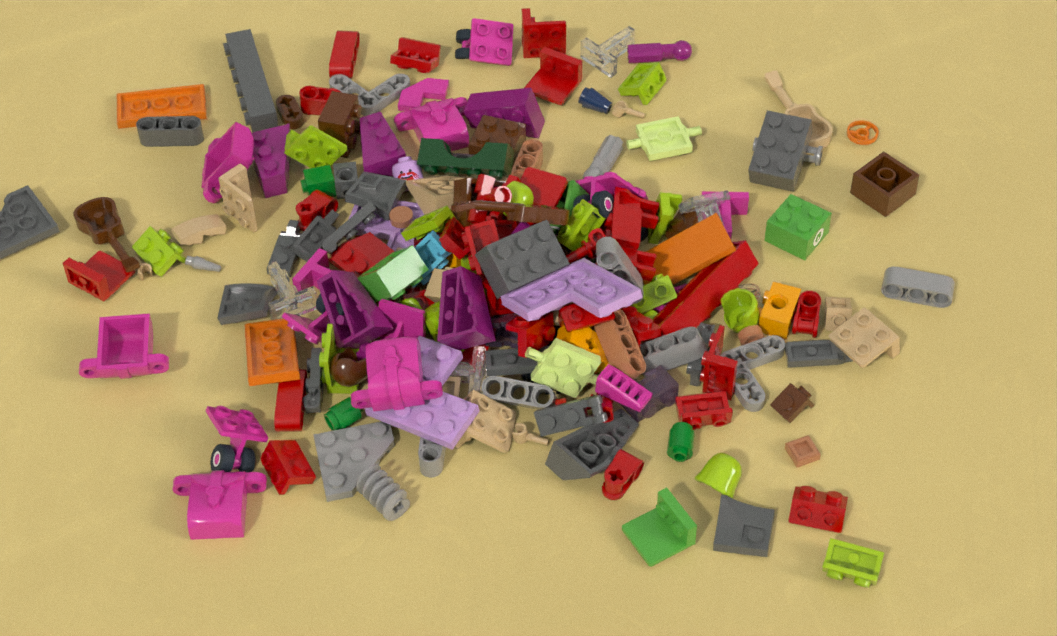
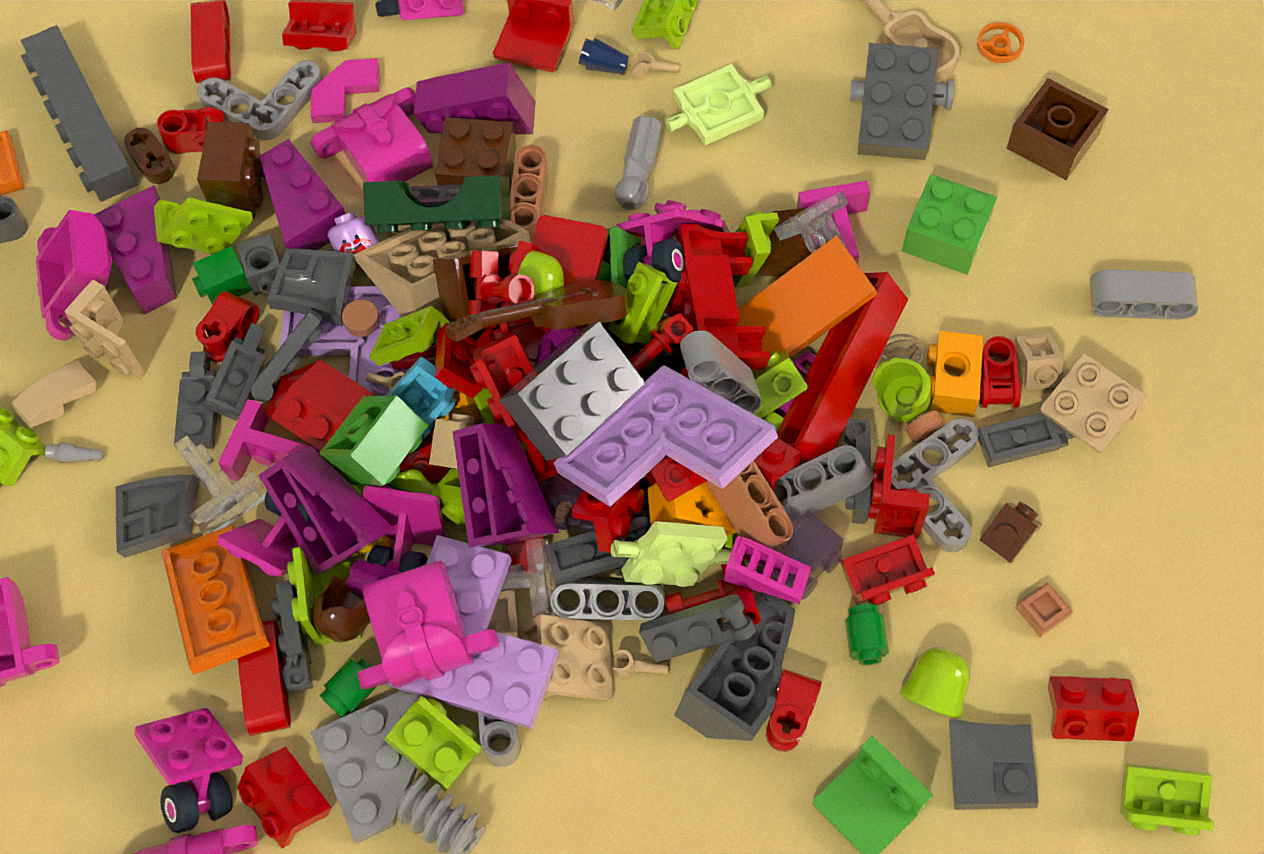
camera: 10 degrees left, 15 degrees up
(389, 449) = (433, 741): none -> lime bracket

